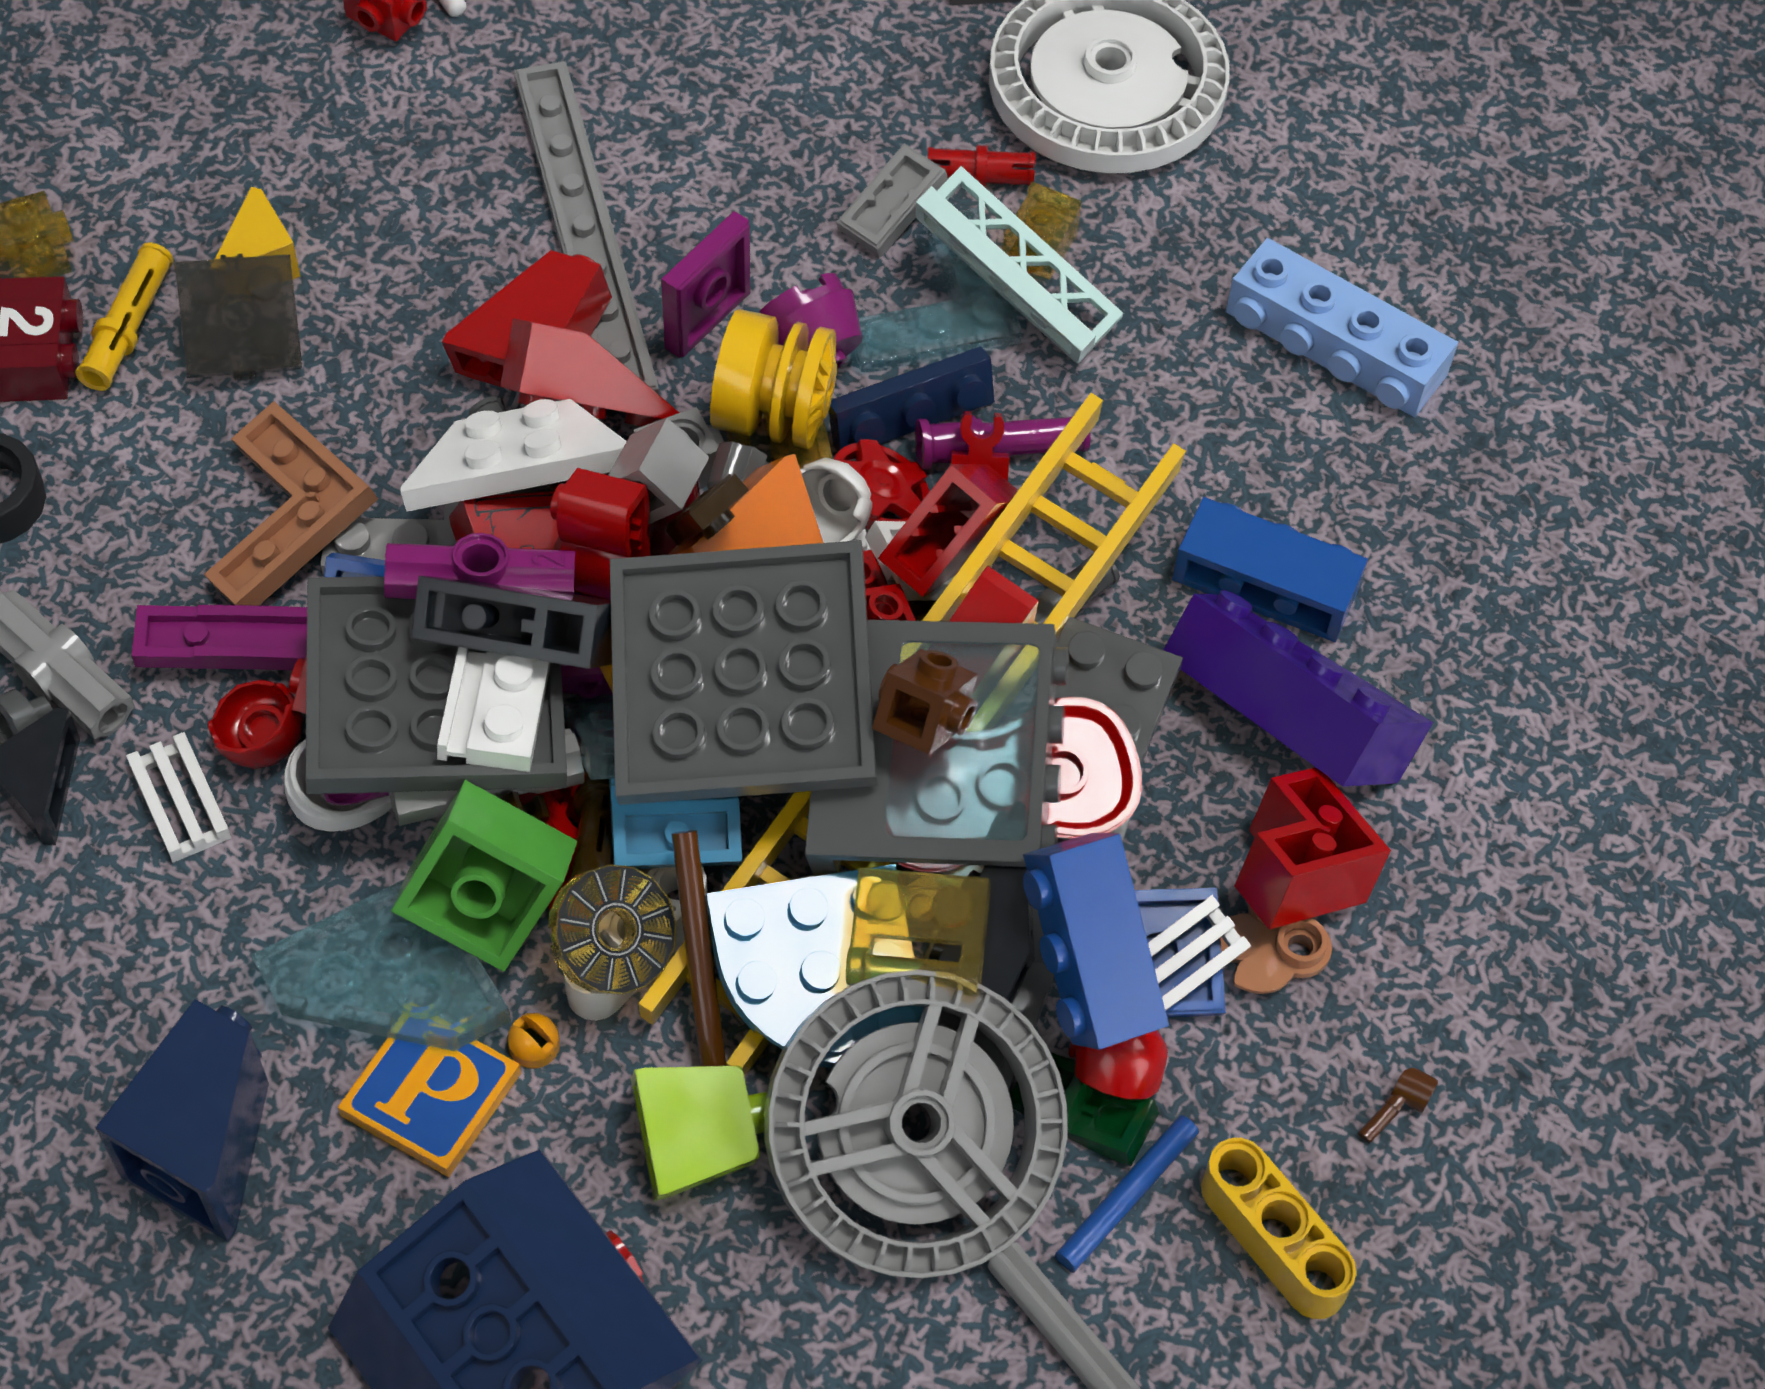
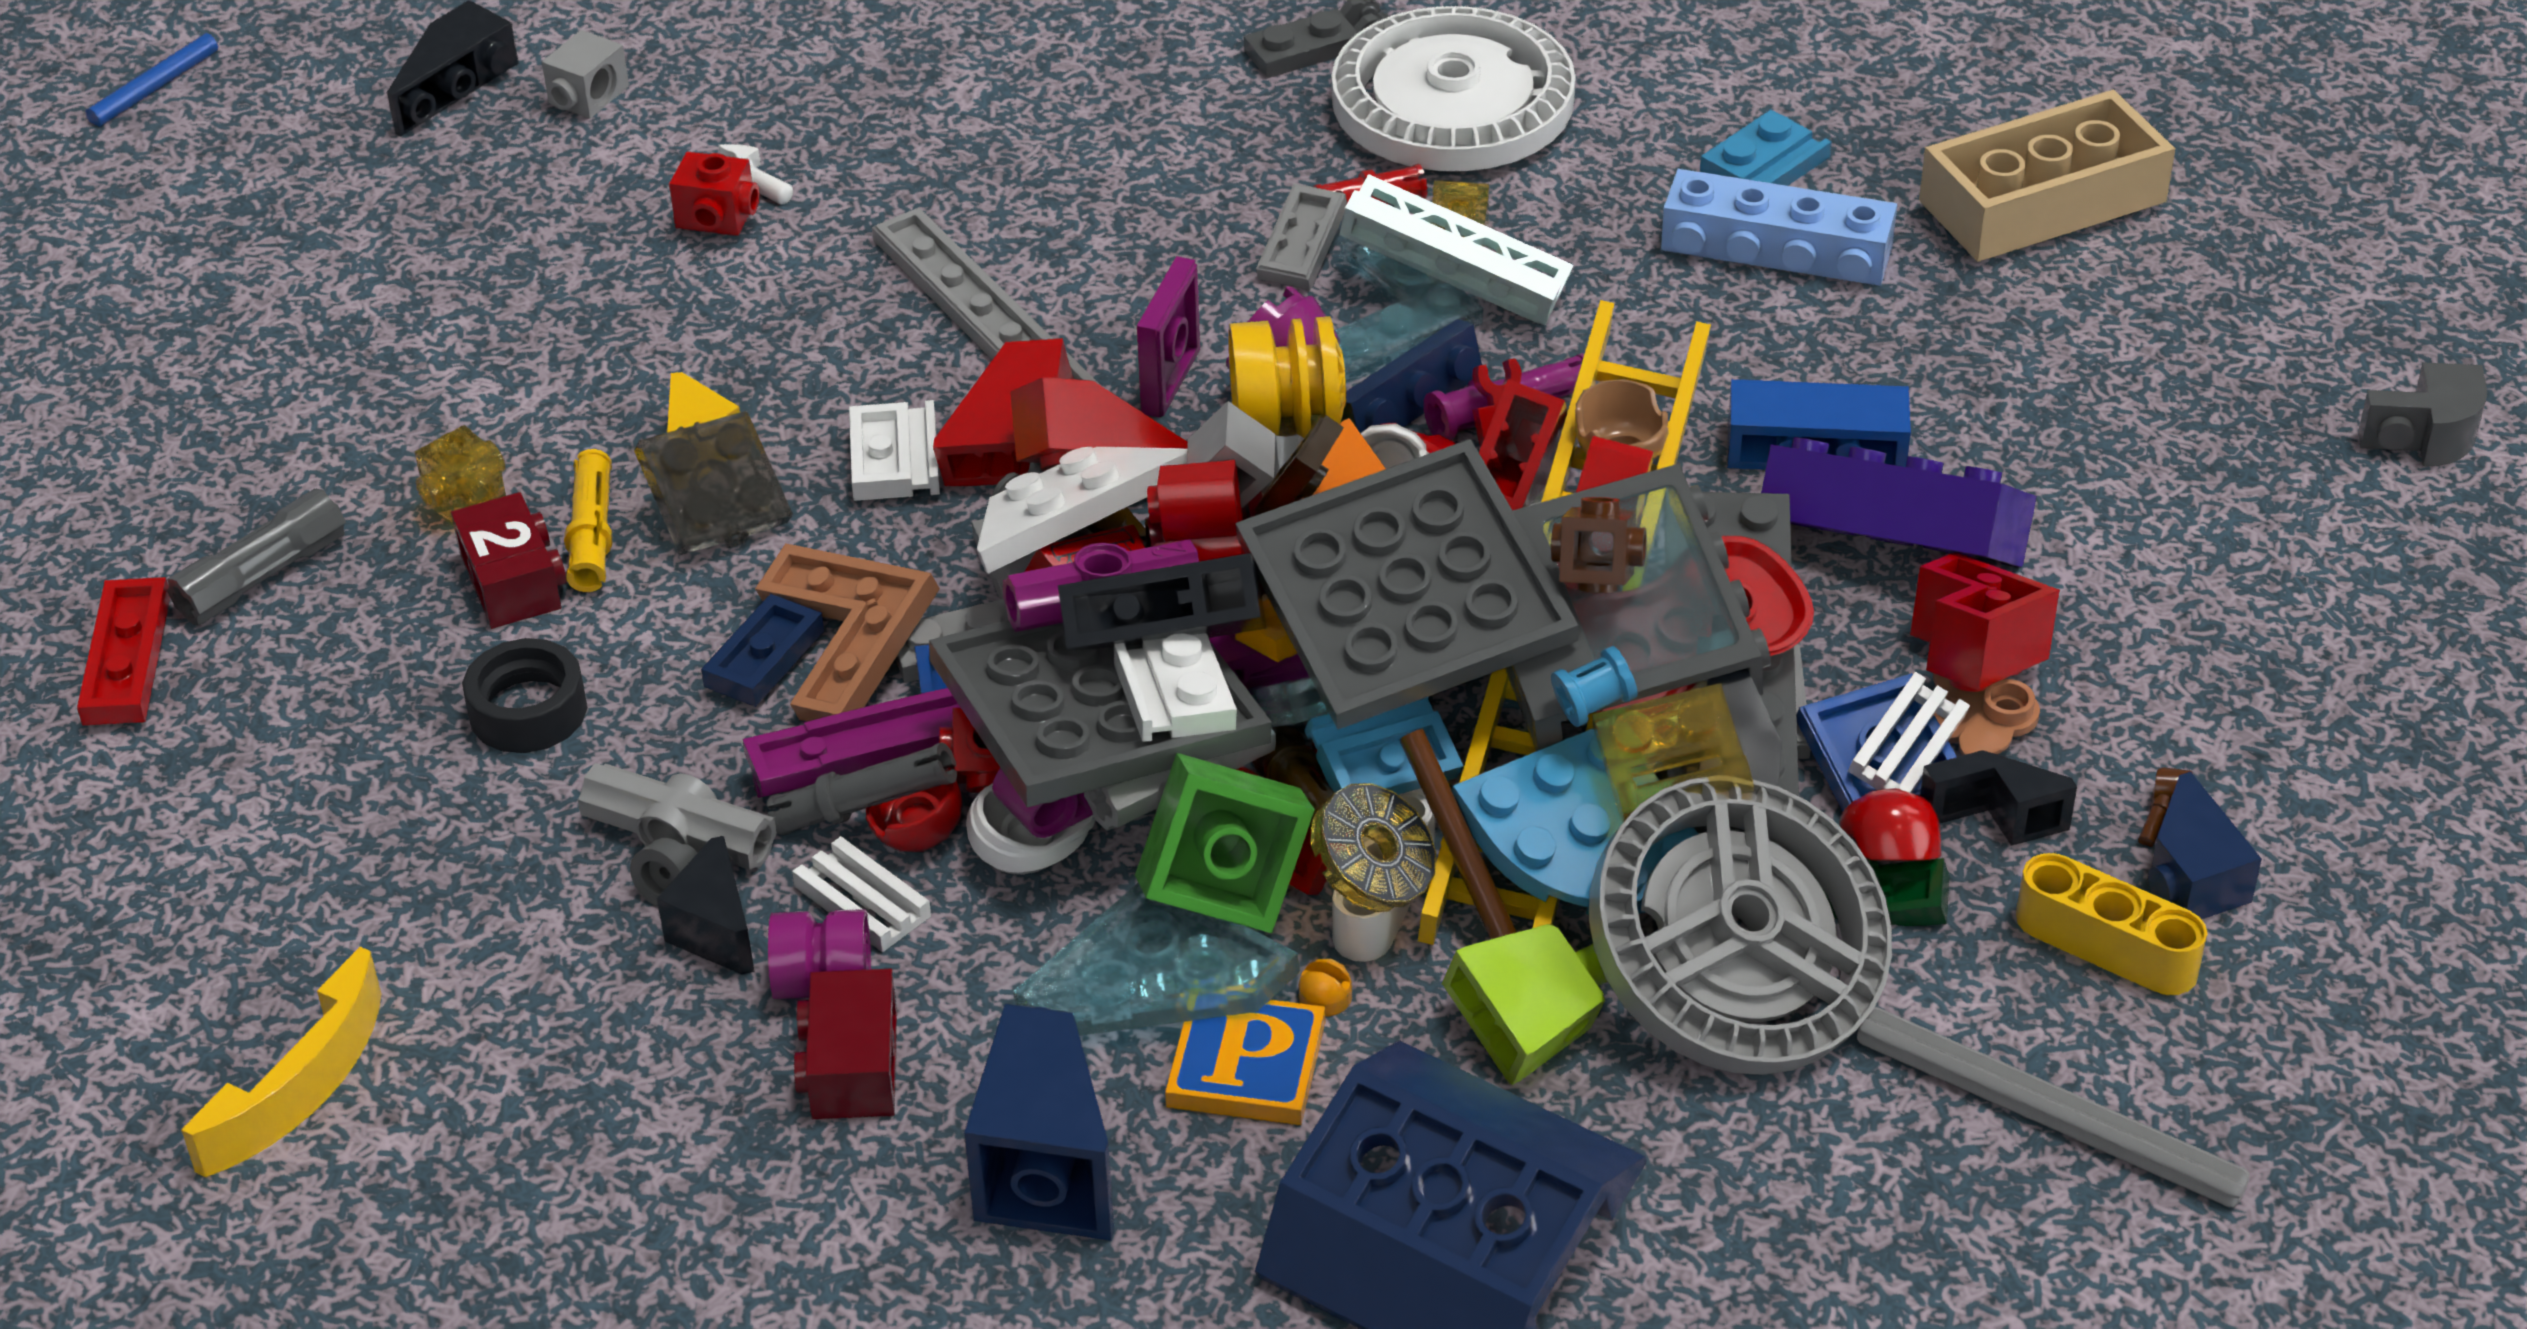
camera: 15 degrees left, 15 degrees down
(87, 961) = (849, 1044): none -> dark red brick
(91, 855) = (804, 946): none -> magenta wheel
(192, 694) = (839, 796): none -> dark grey pin
(208, 506) = (762, 650): none -> dark blue plate
(415, 321) = (892, 450): none -> white plate
(863, 845) = (1594, 686): none -> dark azure bush
(1045, 539) = (1621, 413): none -> medium nougat hair
(1094, 940) = (1842, 706): blue brick -> none
(1126, 1193) = (1954, 946): blue bar -> none
(1262, 1058) = (2018, 796): none -> black slope
(1371, 236) = (1767, 151): none -> dark azure plate
(1397, 1180) = (2201, 855): none -> dark blue slope
(1623, 349) = (2046, 175): none -> tan brick

